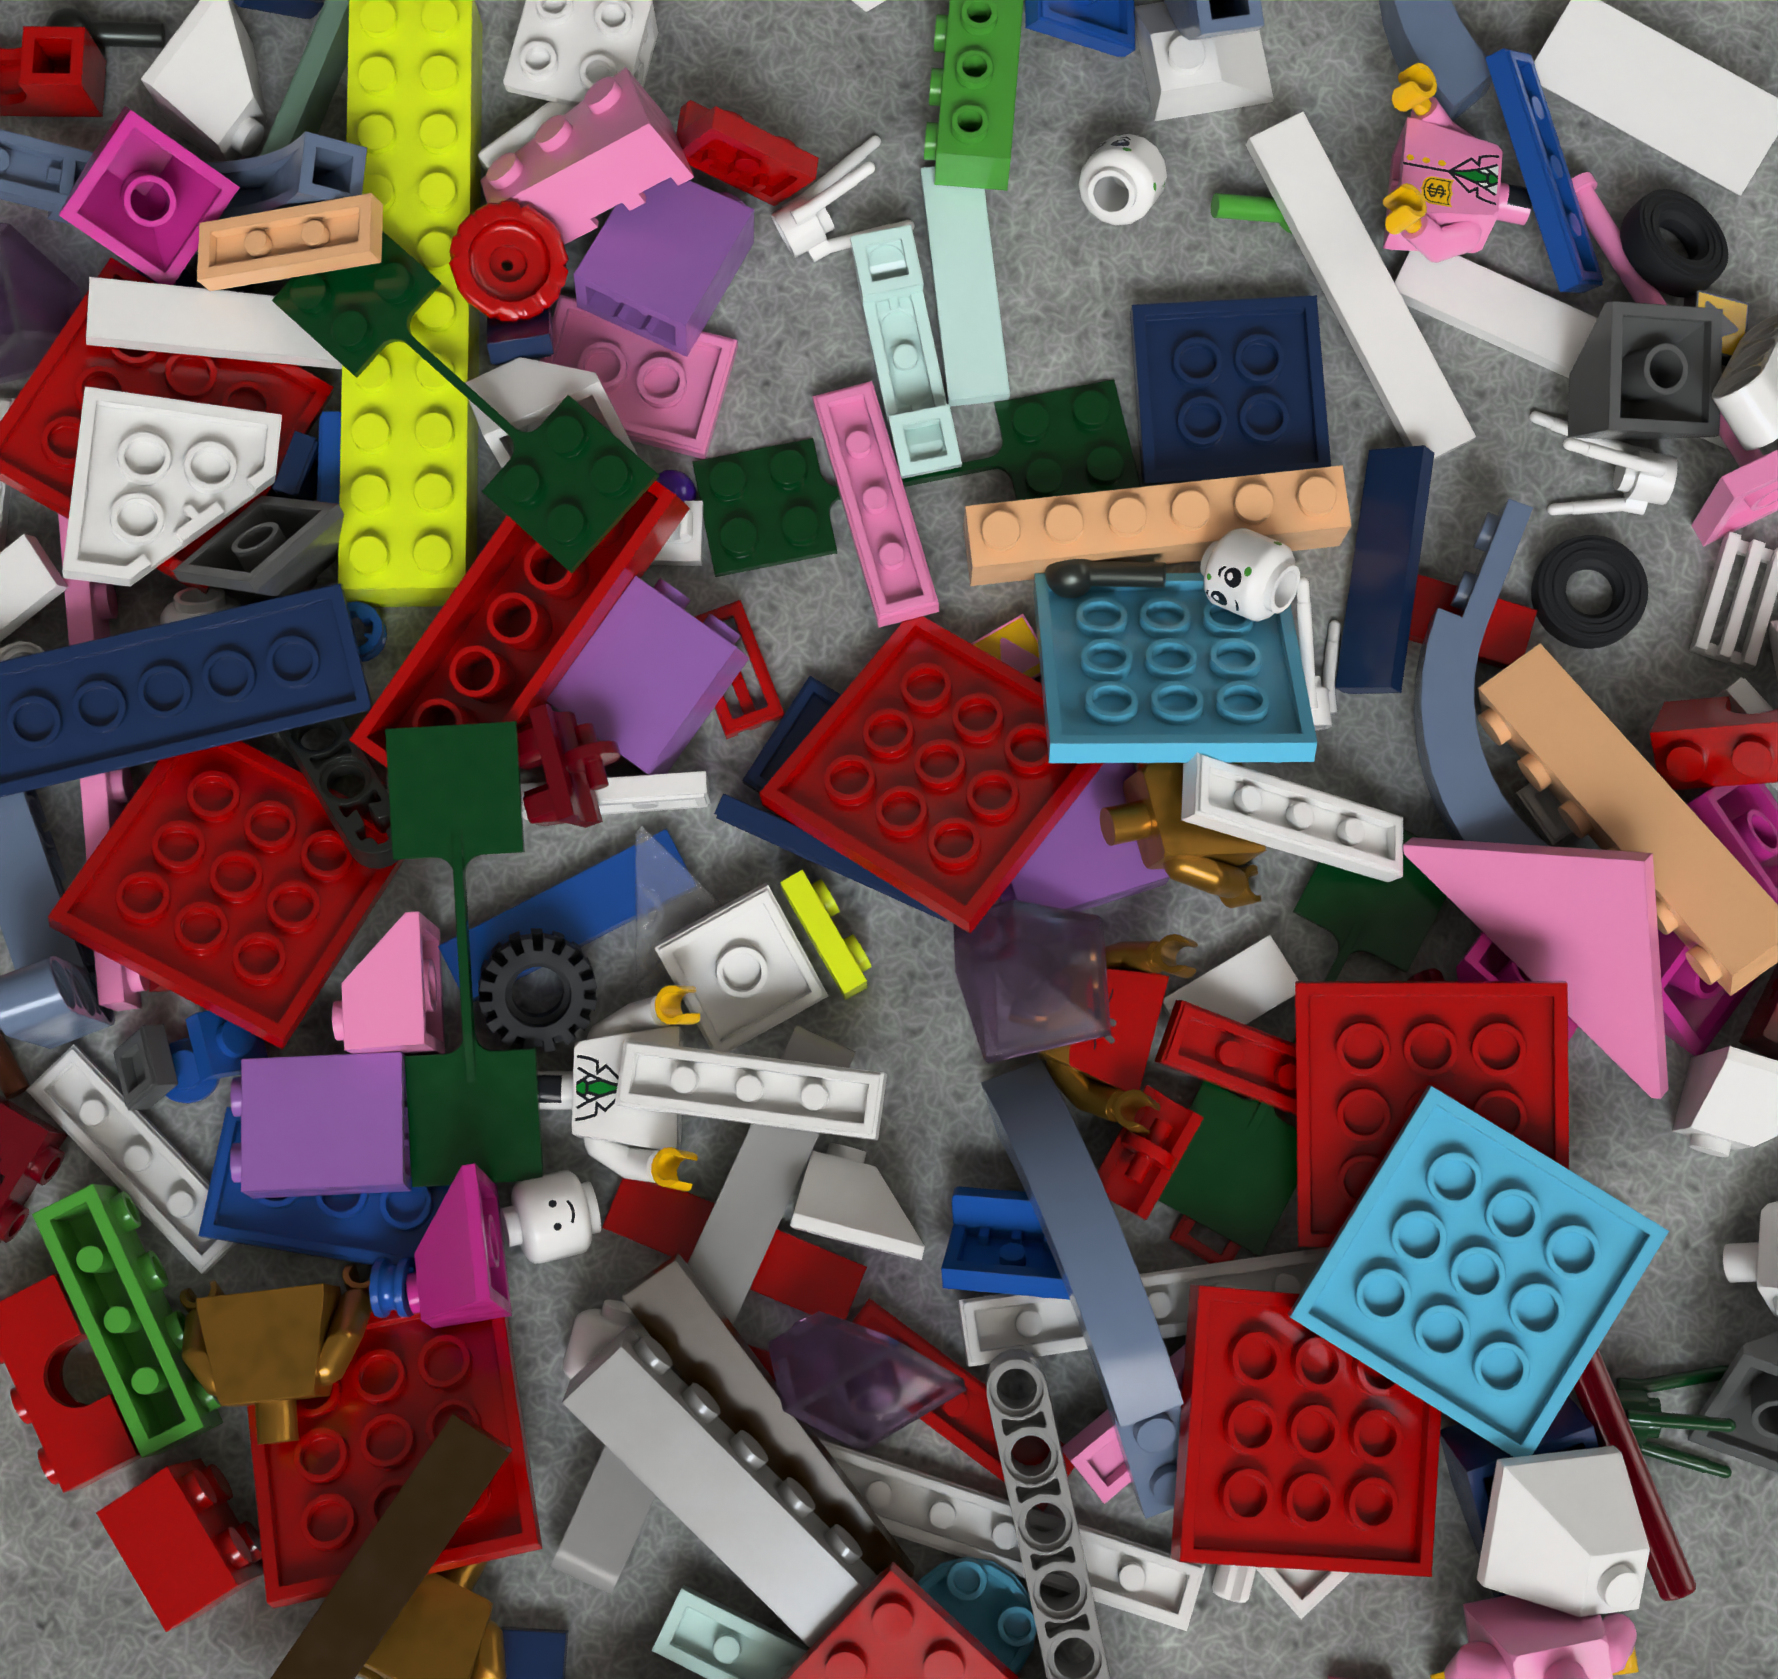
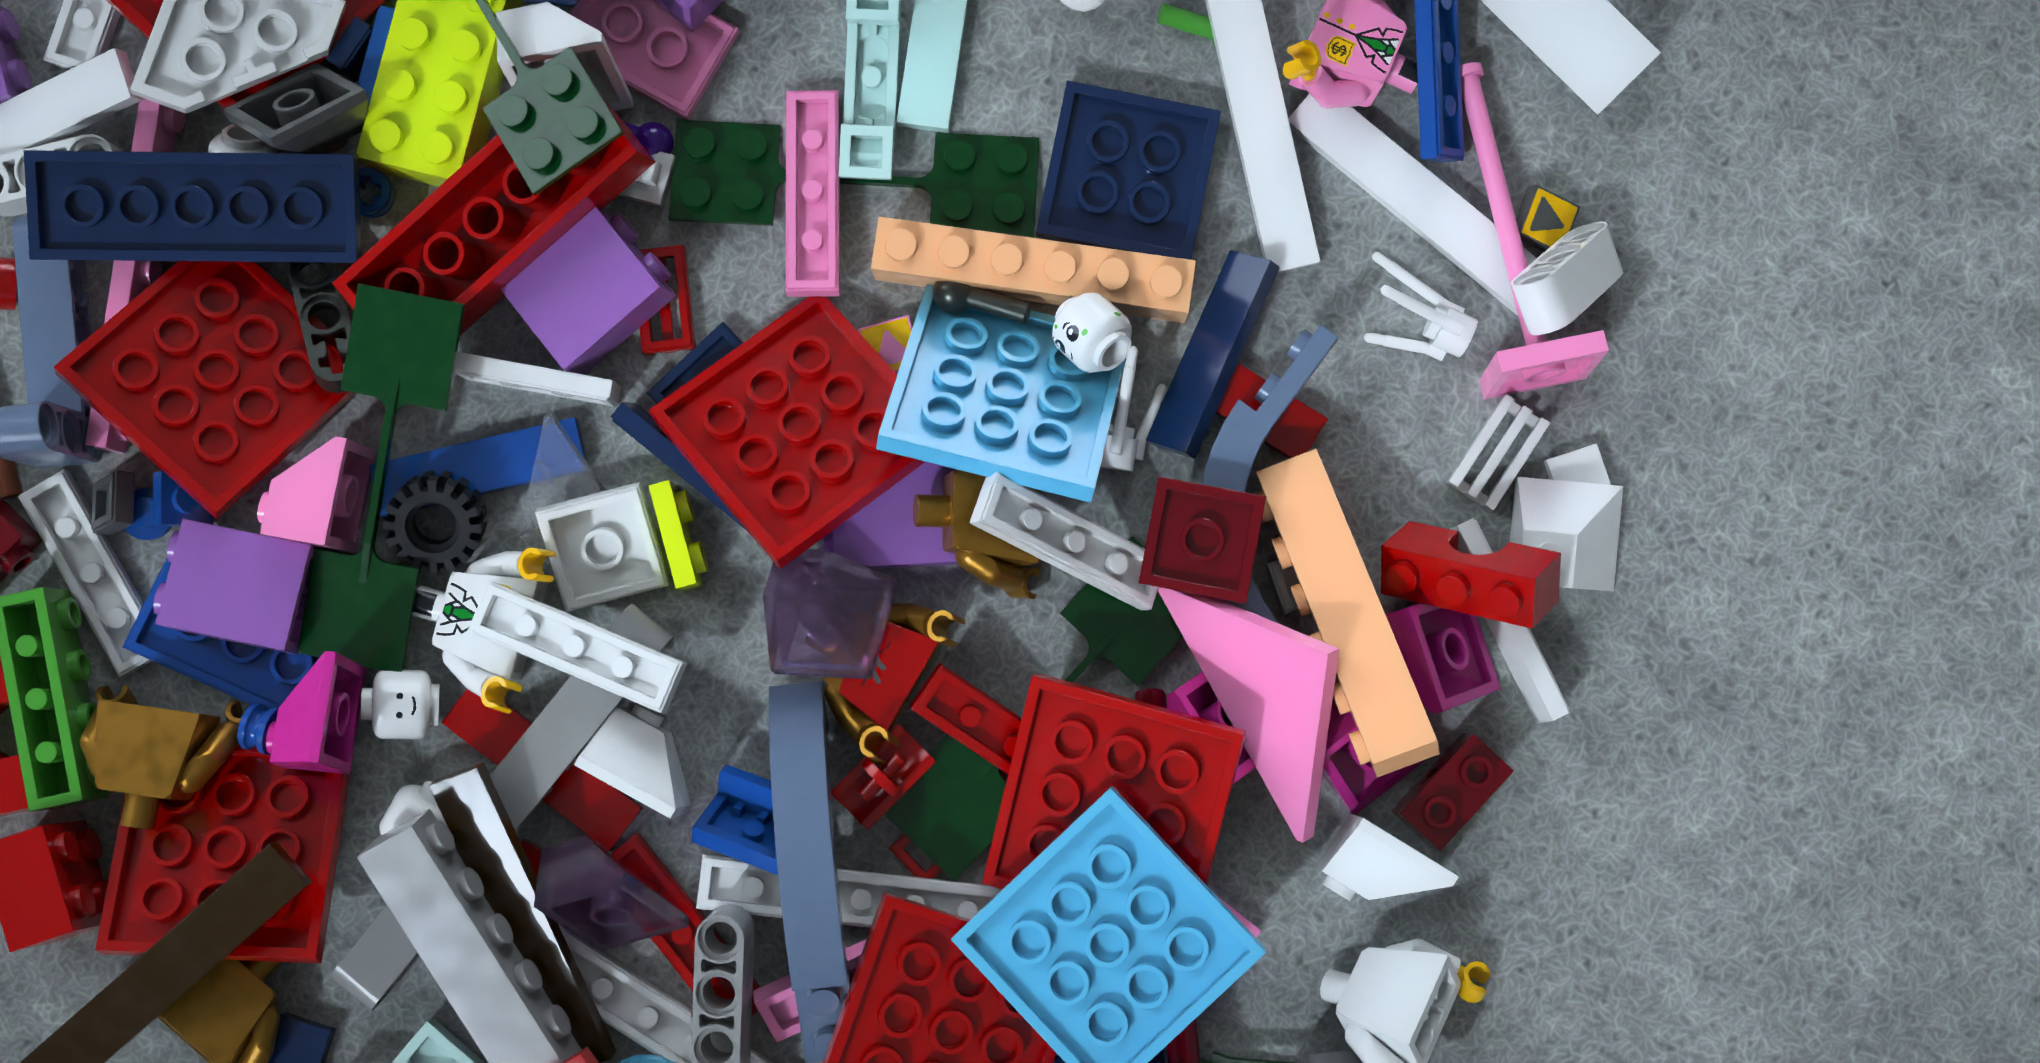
camera: 20 degrees right, 5 degrees up
(572, 767) = (499, 349): dark red hips -> none
(1241, 985) = (998, 663): white tile -> none
(1445, 777) = (1202, 539): none -> dark red plate
(1616, 565) = (1390, 384): black tyre -> none
(1647, 374) = (1470, 246): dark grey slope -> none
(1653, 256) = (1553, 130): black tyre -> none

